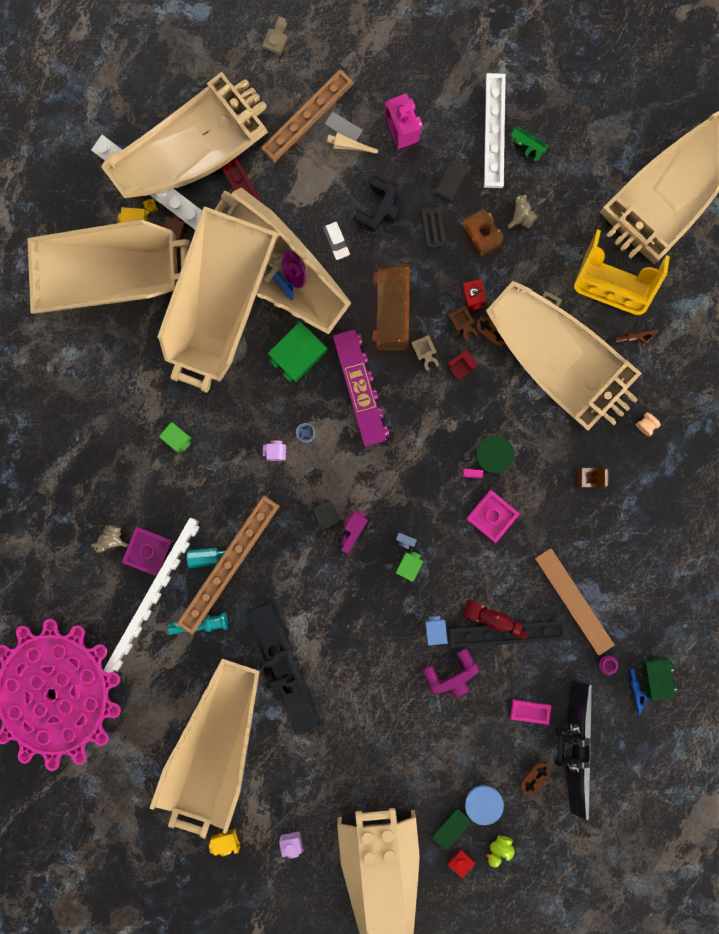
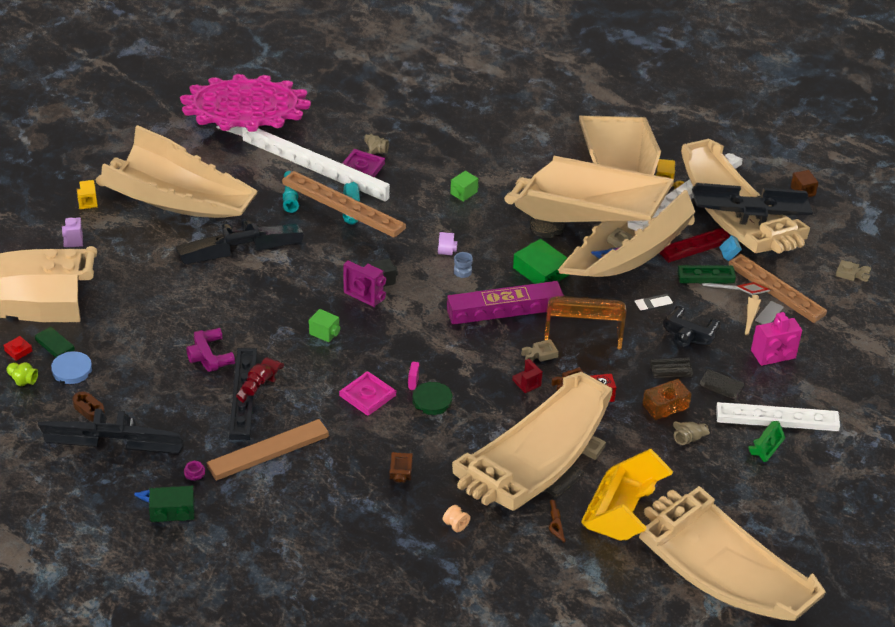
camera: 90 degrees right, 45 degrees down
(140, 71) = (805, 182): none -> reddish brown brick
(202, 126) = (728, 199): none -> black piece
(256, 157) = (730, 248): none -> dark azure plate
(296, 185) = (706, 274): none -> dark green plate
(313, 141) = (750, 288): none -> light grey piece
(405, 541) = (351, 324): sand blue plate -> none
(436, 631) = (257, 338): medium blue brick -> none
(530, 711) = (158, 408): dark pink tile -> none

